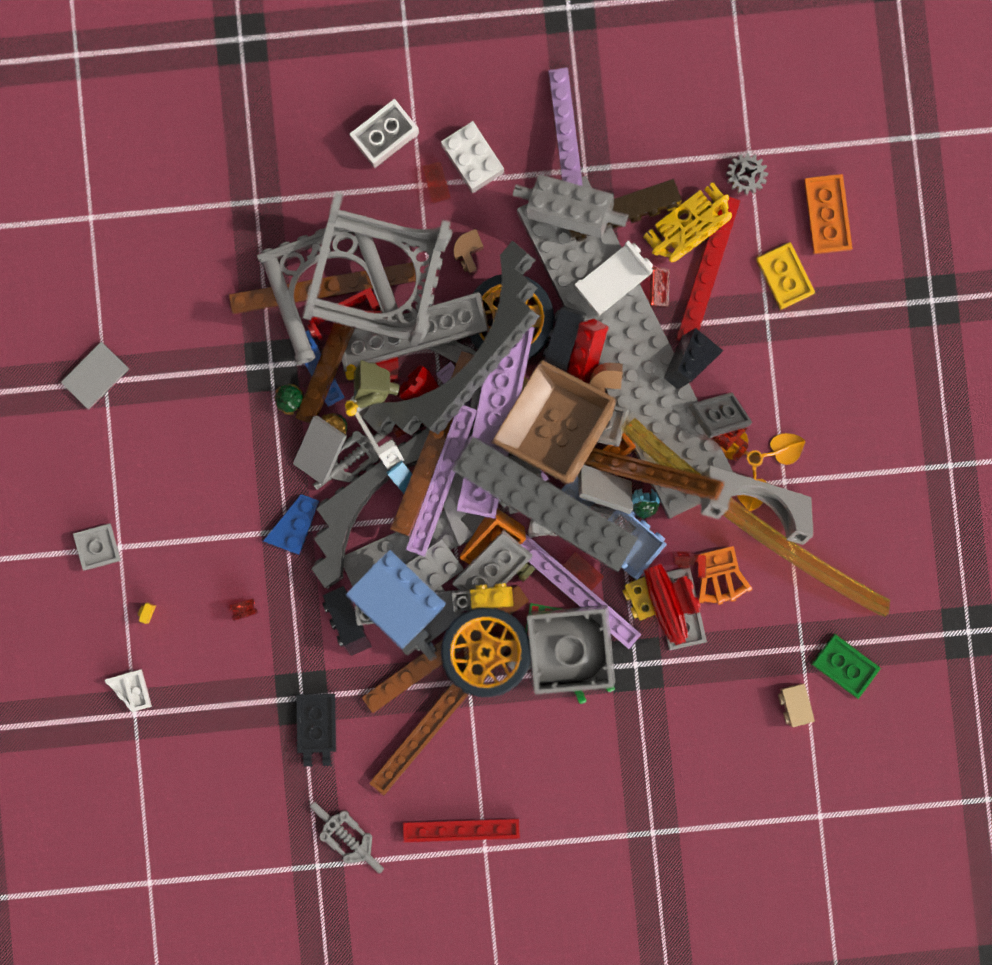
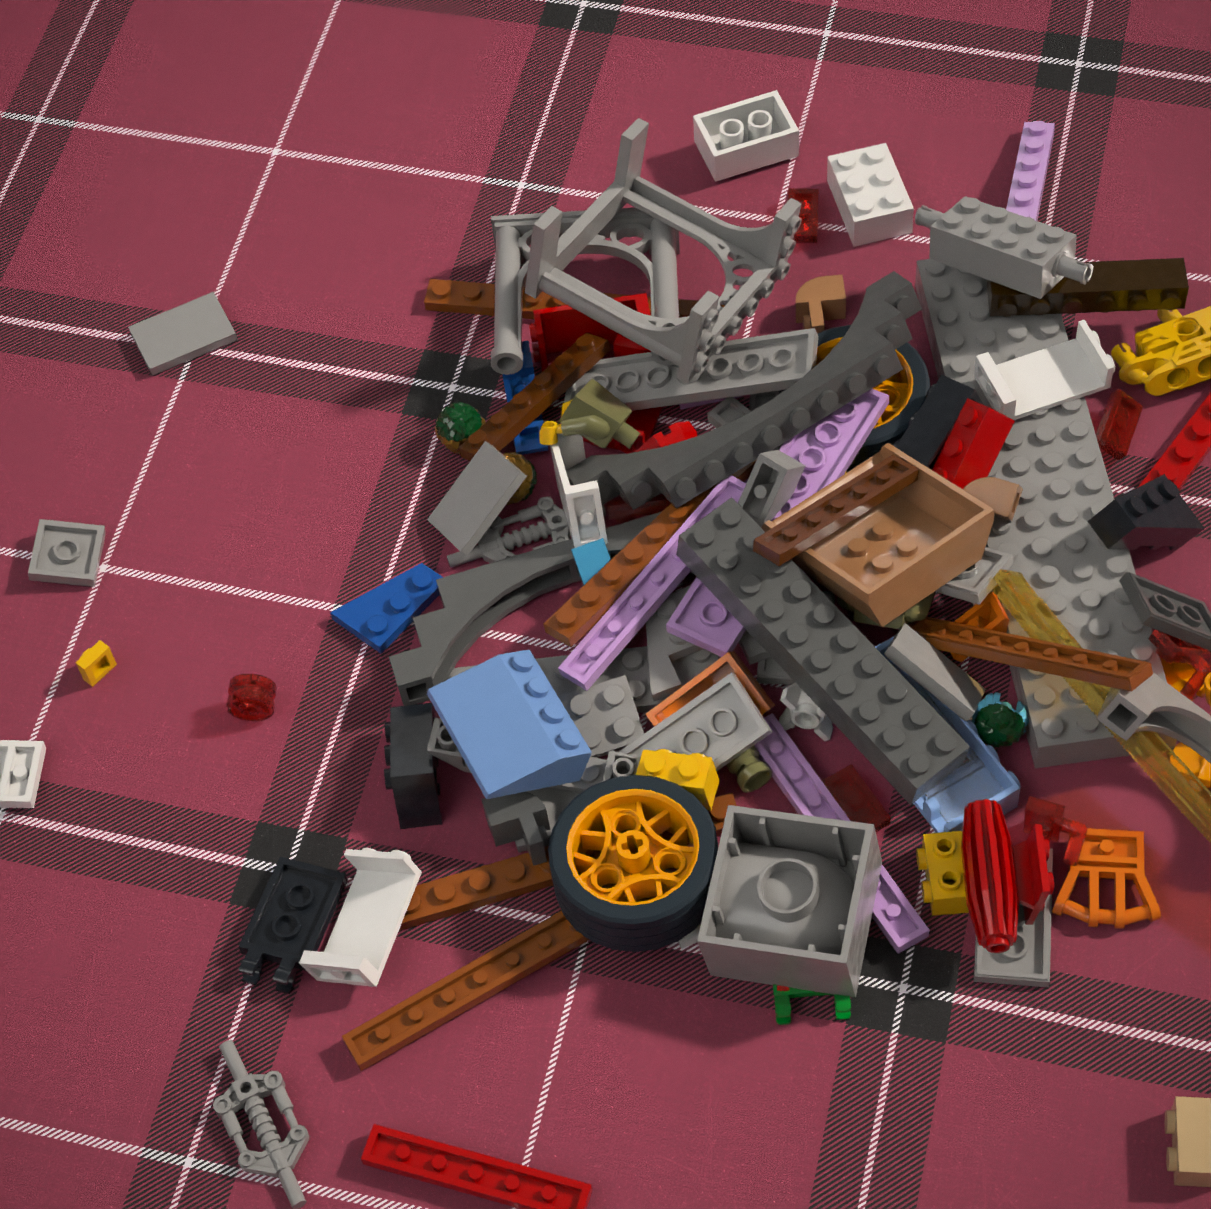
camera: 25 degrees right, 30 degrees down
(357, 718) = (367, 919): none -> white panel
(487, 413) = (770, 485): none -> light grey slope
(531, 424) = (835, 510): none -> reddish brown plate

